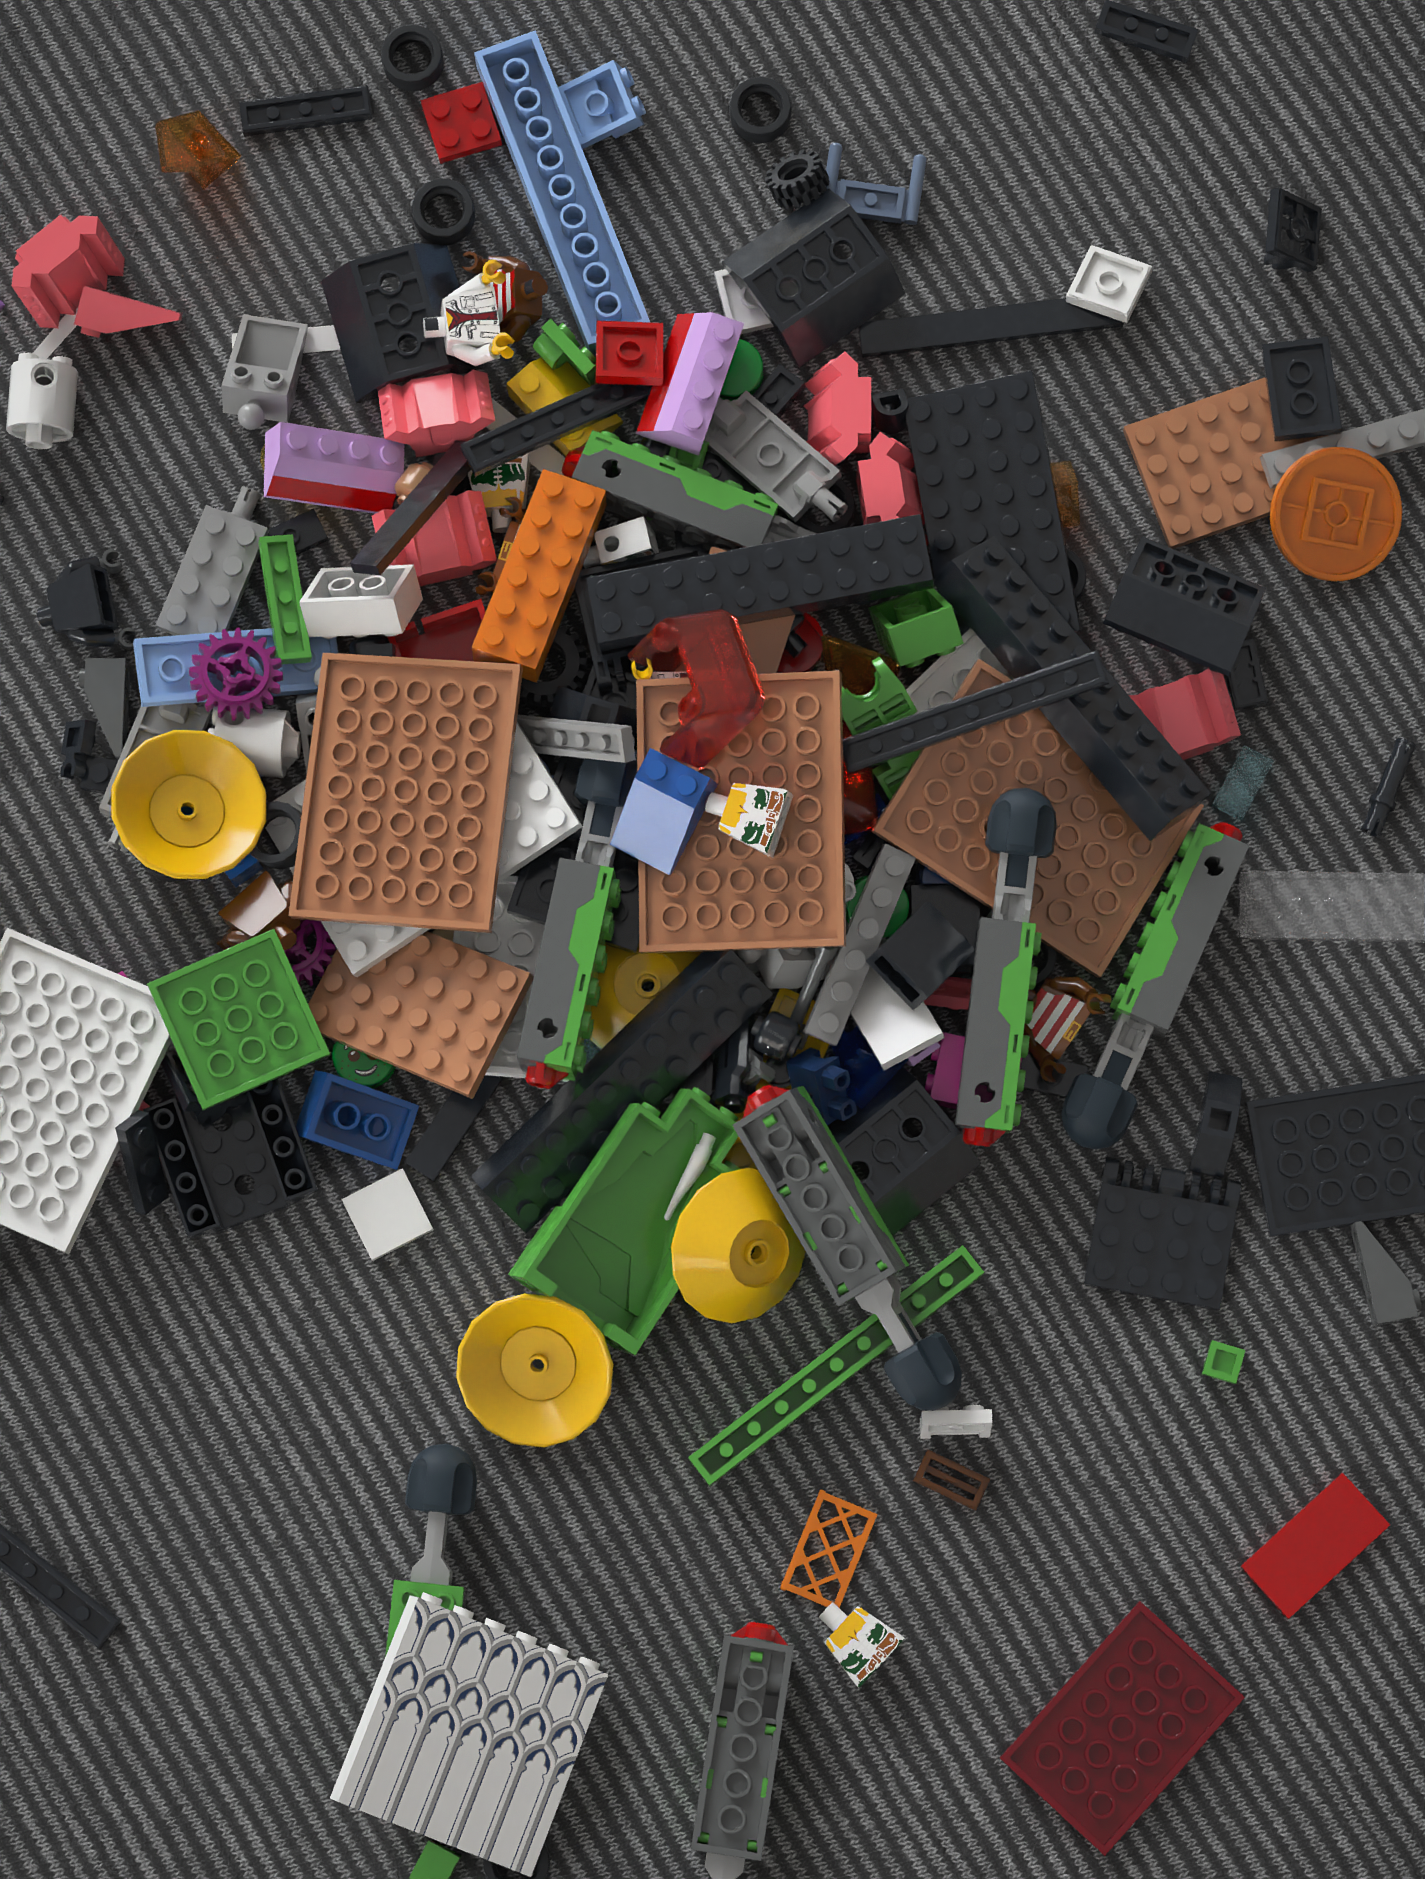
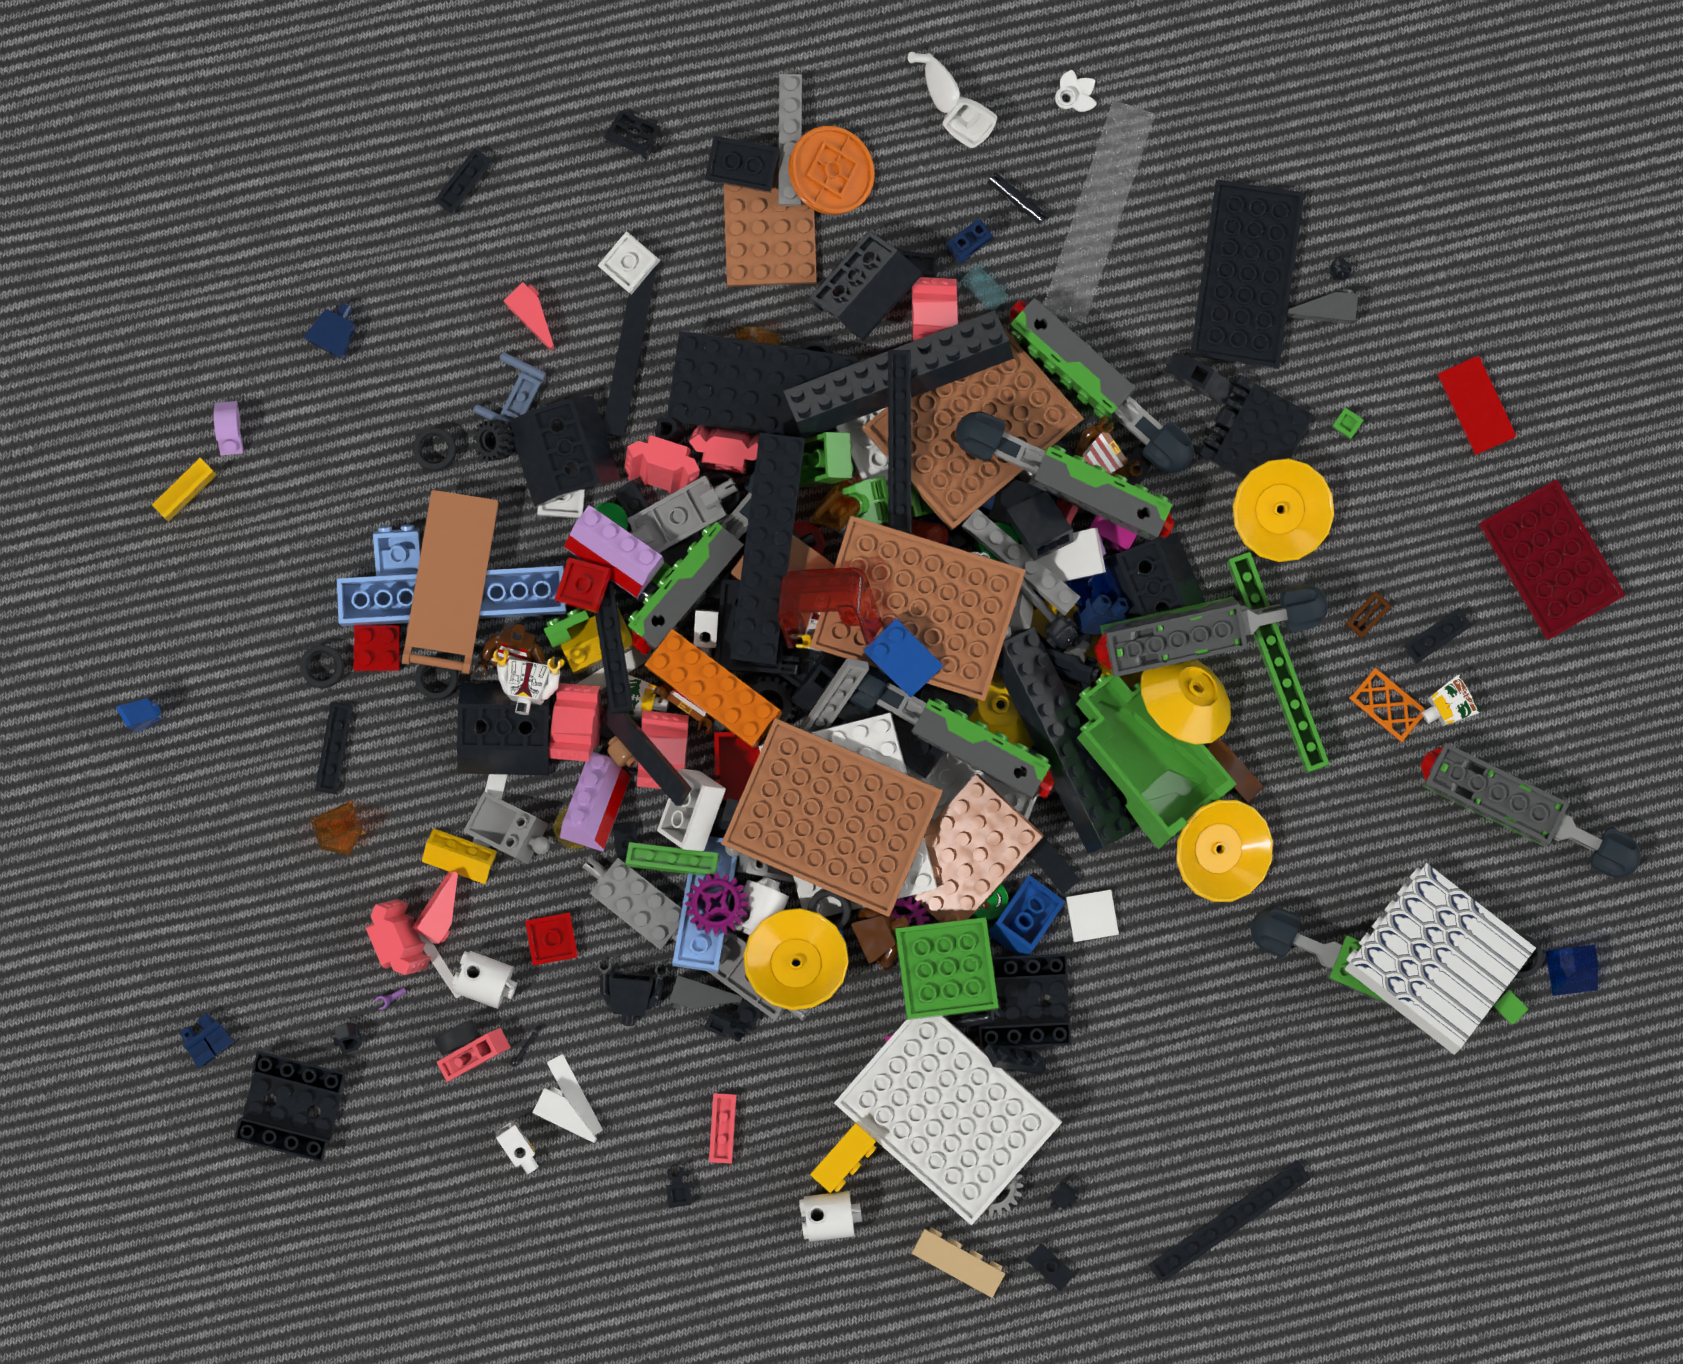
camera: 75 degrees left, 5 degrees up
(128, 477) = (551, 939): none -> red plate
(207, 317) = (458, 856): none -> yellow panel
(582, 178) = (451, 579): none -> nougat flag
(659, 1351) = (1246, 782): none -> reddish brown slope
(693, 1170) = (1122, 704): white animal -> none
(752, 814) = (925, 601): torso -> none
(953, 1591) = (1437, 635): none -> black plate
(970, 1420) = (1338, 590): white plate -> none
(994, 176) = (528, 309): none -> coral slope
(1054, 1339) = (1305, 515): none -> yellow dish
(1311, 739) = (971, 238): none -> dark blue hips

